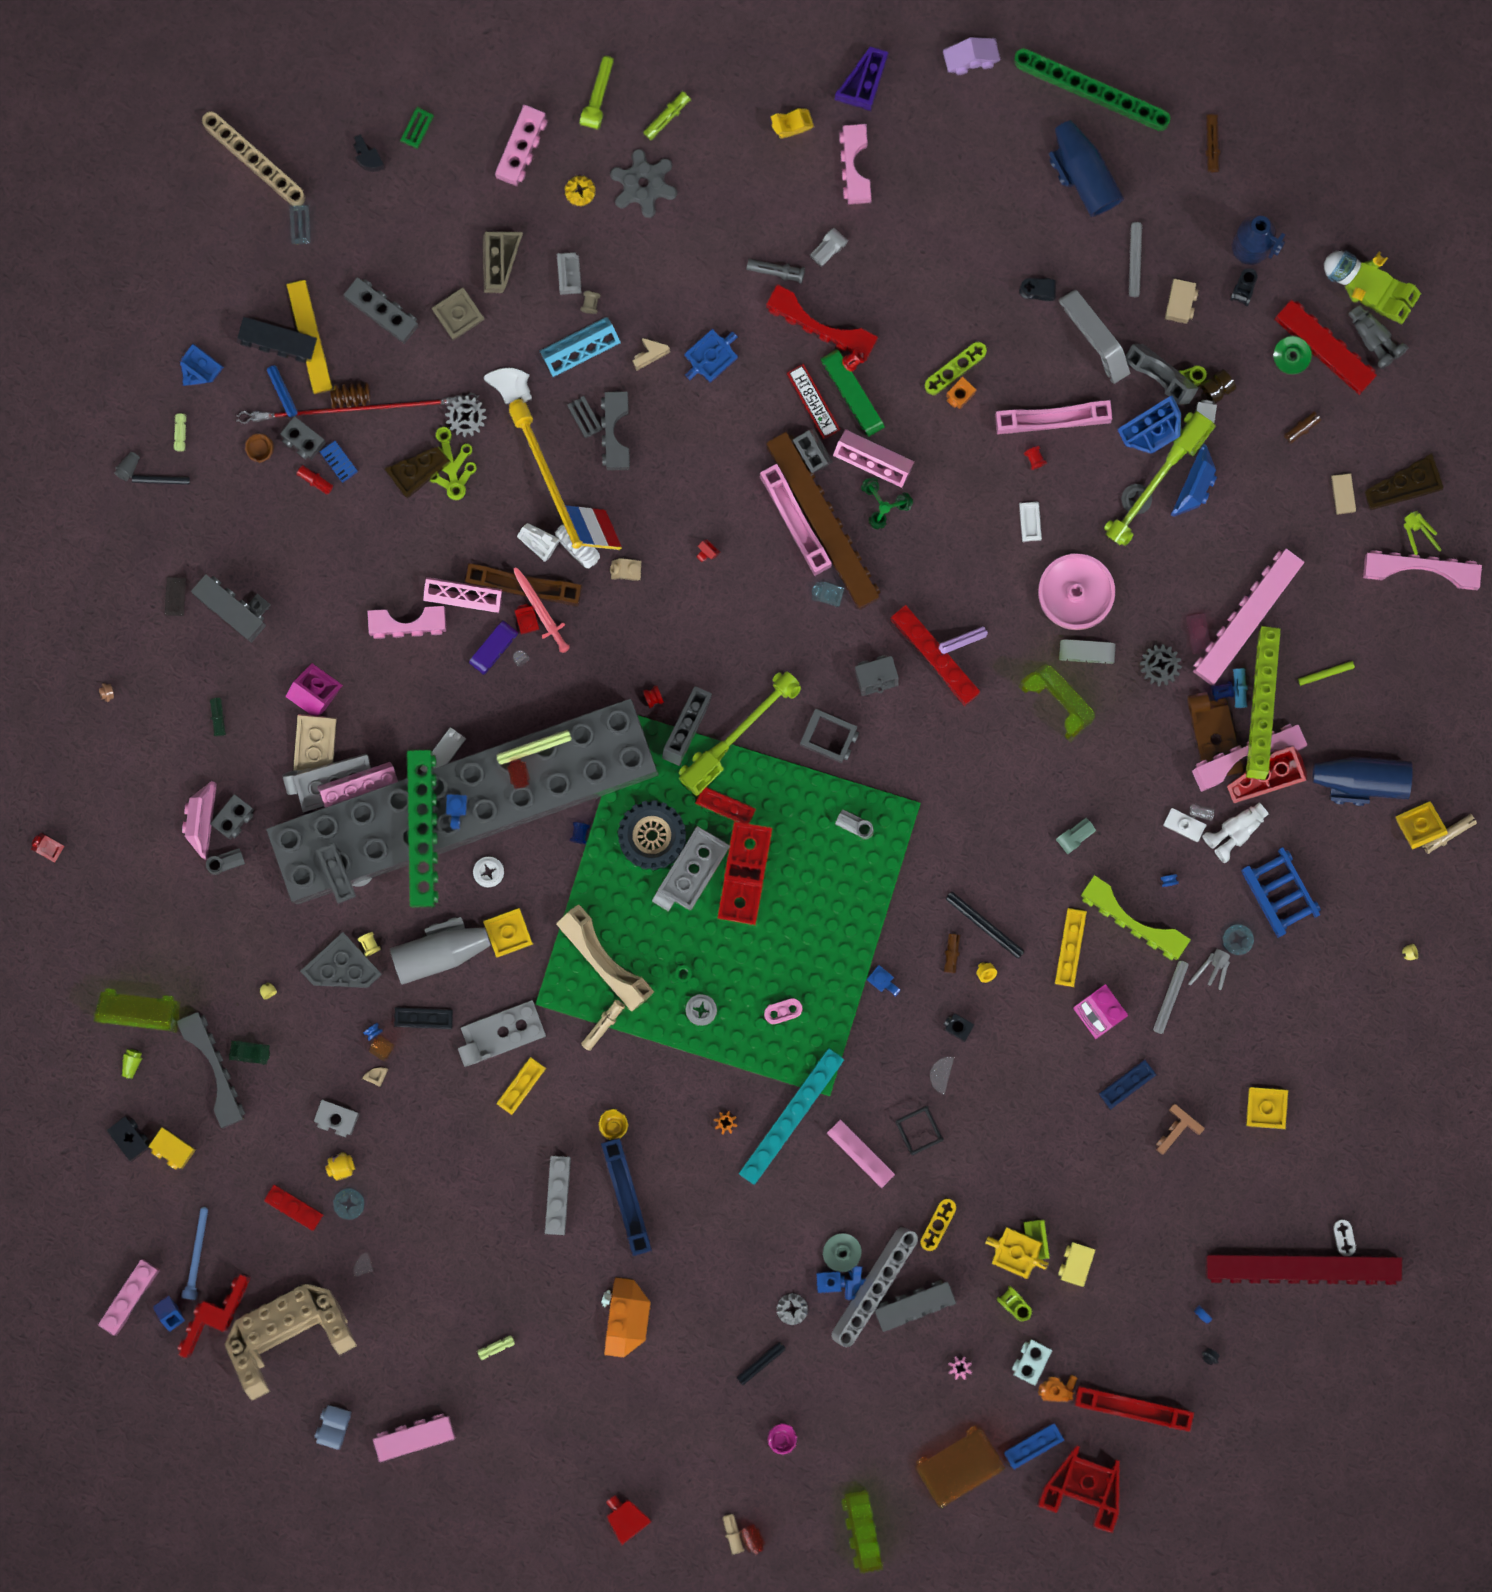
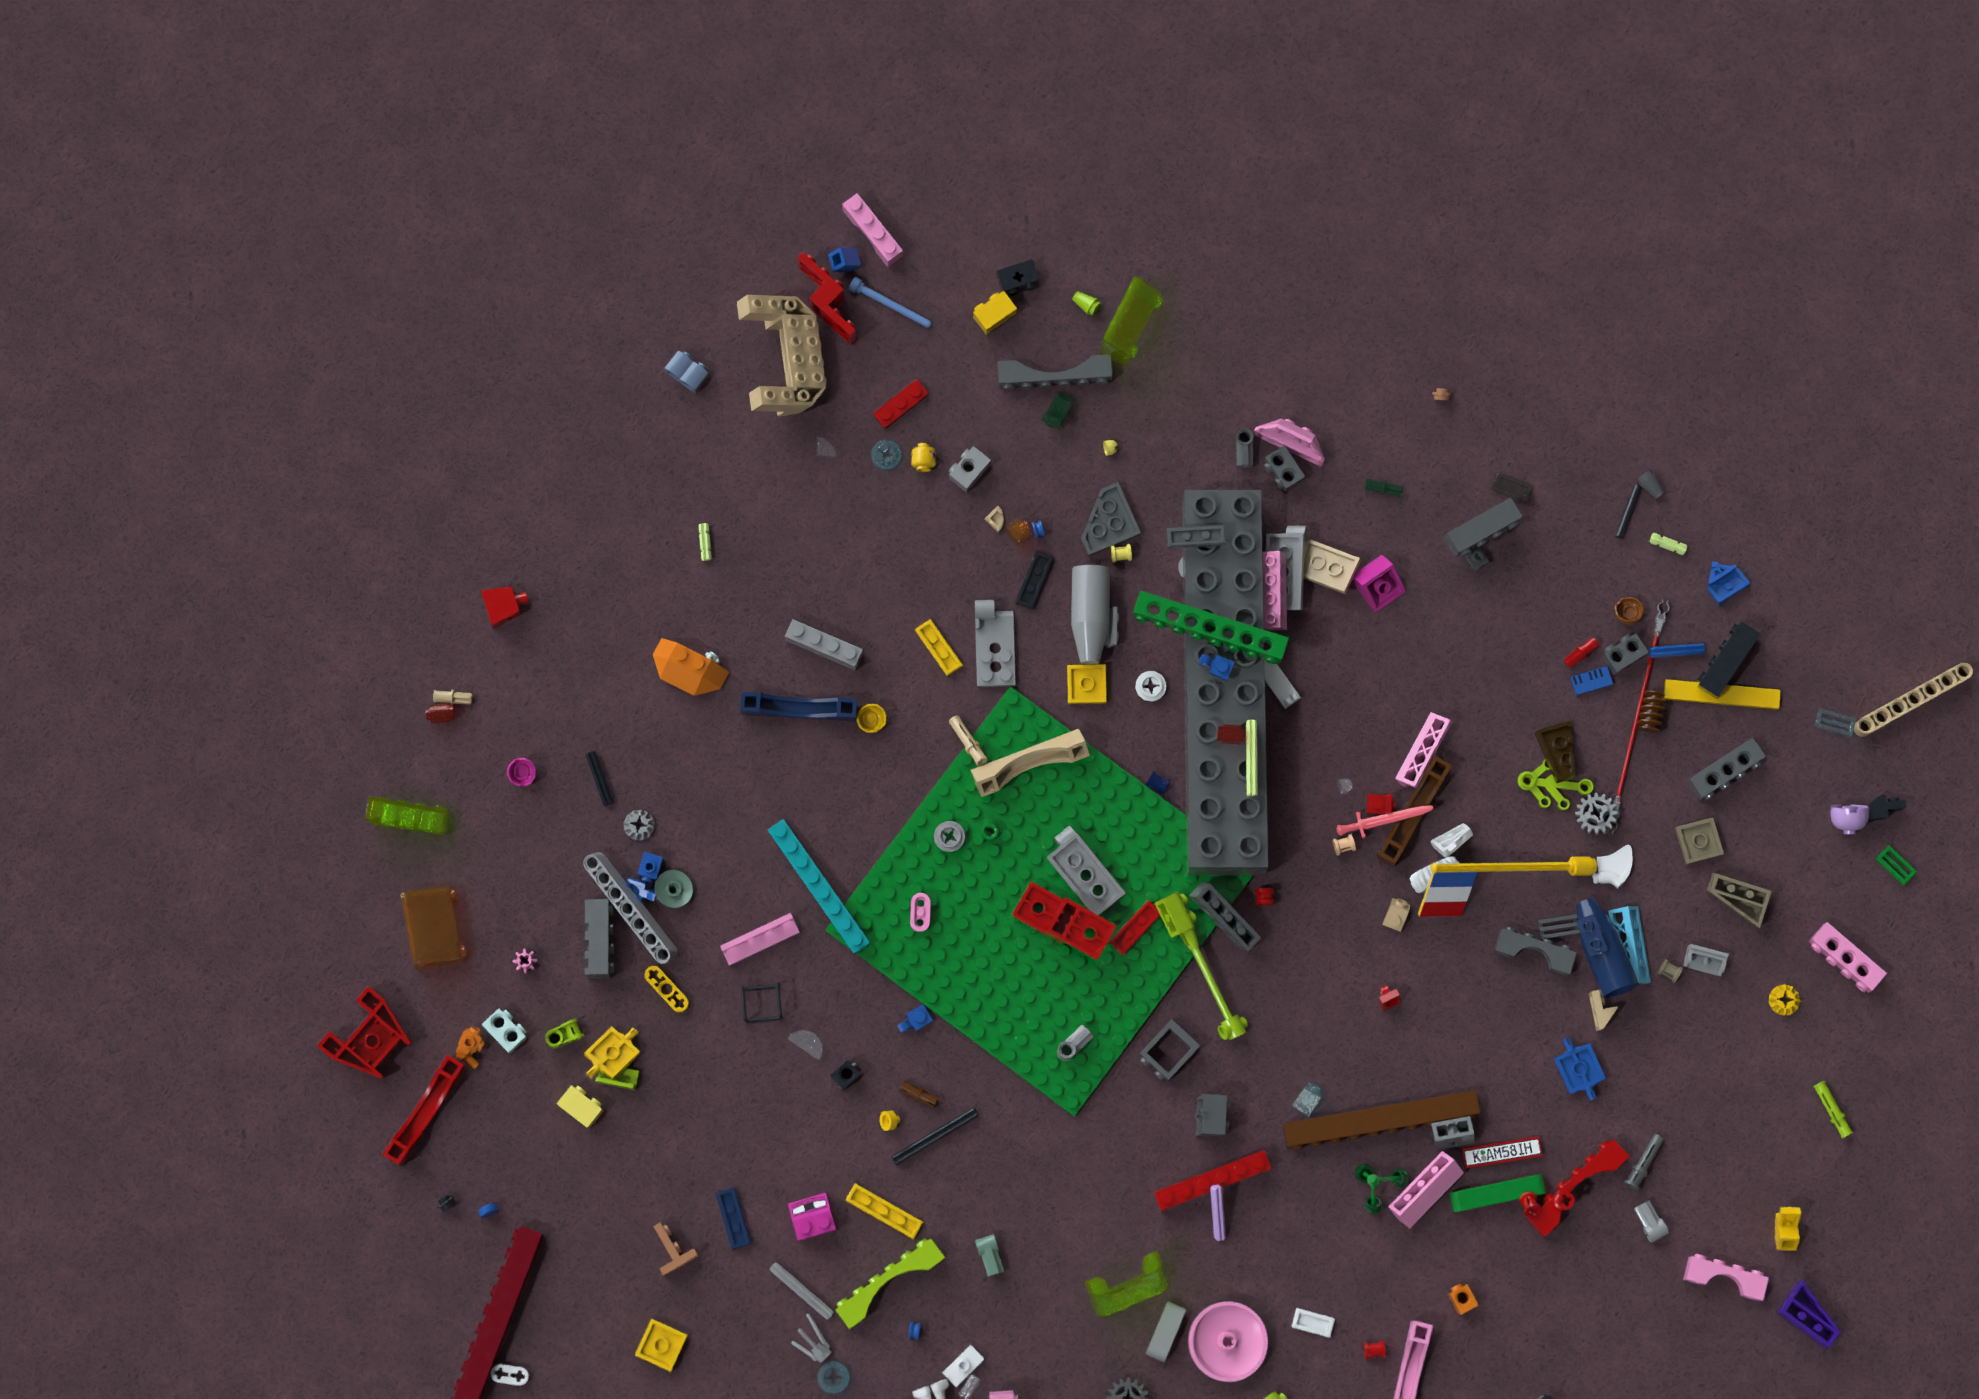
camera: 105 degrees right, 5 degrees down
(47, 847) = (1313, 294): bracket -> none
(388, 183) = (1849, 817): none -> lavender cylinder
(413, 1438) = (649, 439): bright pink brick -> none
(432, 620) = (1409, 714): bright pink arch -> none
(492, 647) = (1363, 763): dark purple beam -> none
(577, 639) = (1344, 844): none -> light nougat bush
(592, 115) = (1856, 1036): lime axle -> none
(593, 367) = (1604, 950): none -> dark blue piece
(638, 817) = (1136, 825): black wheel -> none
(643, 195) = (1763, 1073): dark grey plate -> none
(723, 1118) = (835, 817): orange gear -> none
(795, 520) = (1391, 1092): bright pink arch -> none
(841, 323) = (1562, 1206): none -> red bush
(955, 368) = (1487, 1304): lime beam -> none
(1033, 1446) = (426, 1004): blue plate -> none

